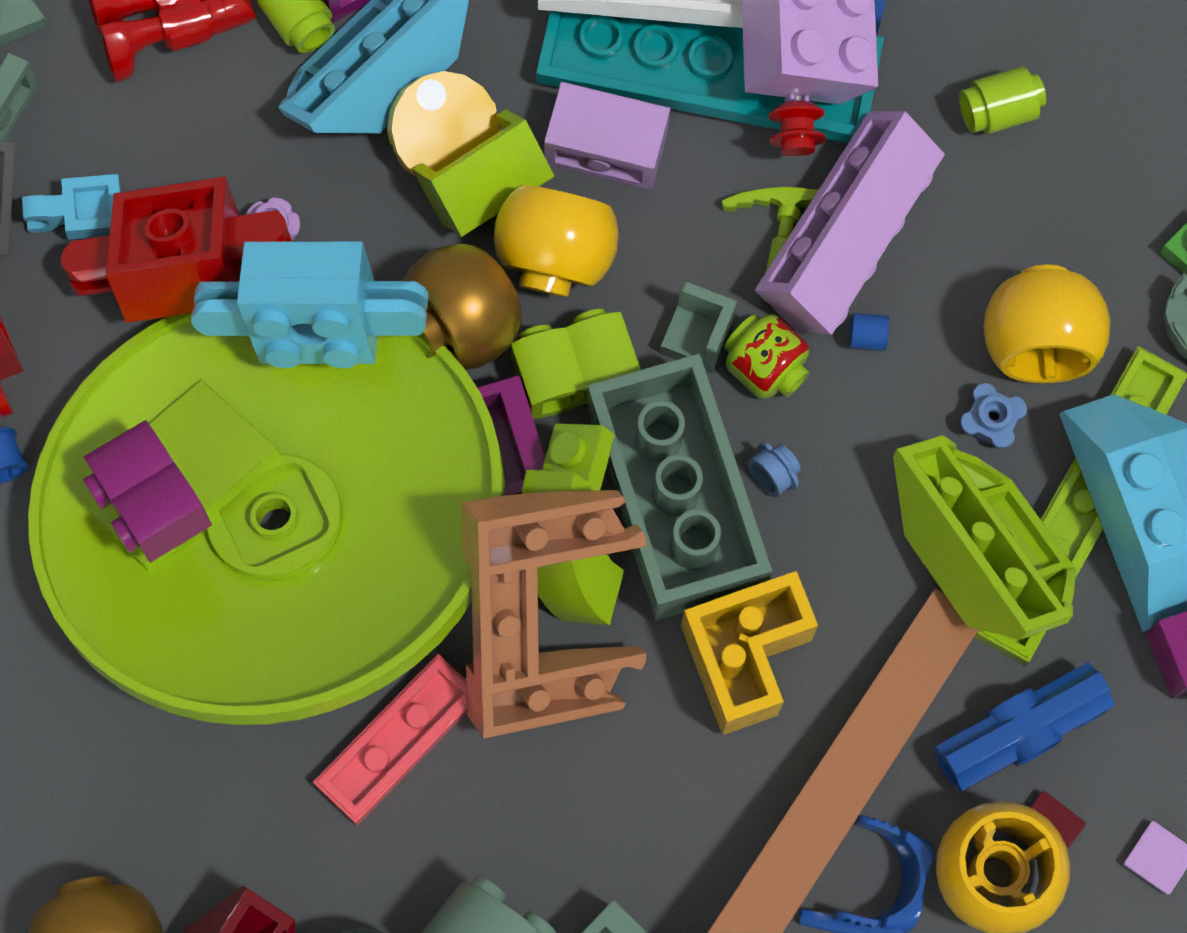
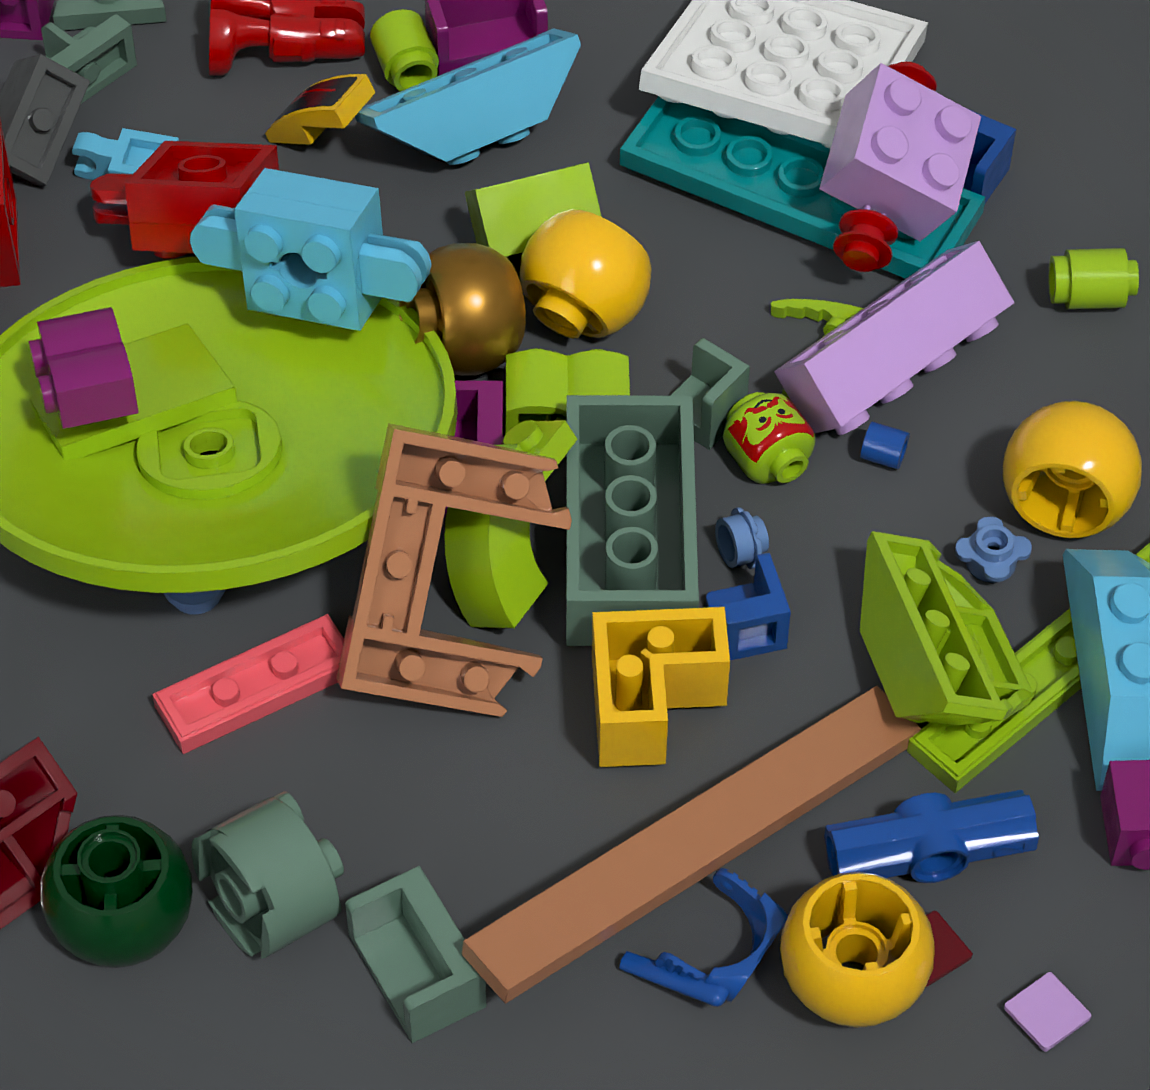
camera: 20 degrees right, 20 degrees down
(244, 107) = (321, 106): none -> yellow slope
(440, 120) = (505, 150): yellow tile -> none
(606, 136) = (675, 215): lavender panel -> none
(804, 541) = (755, 612): none -> blue panel

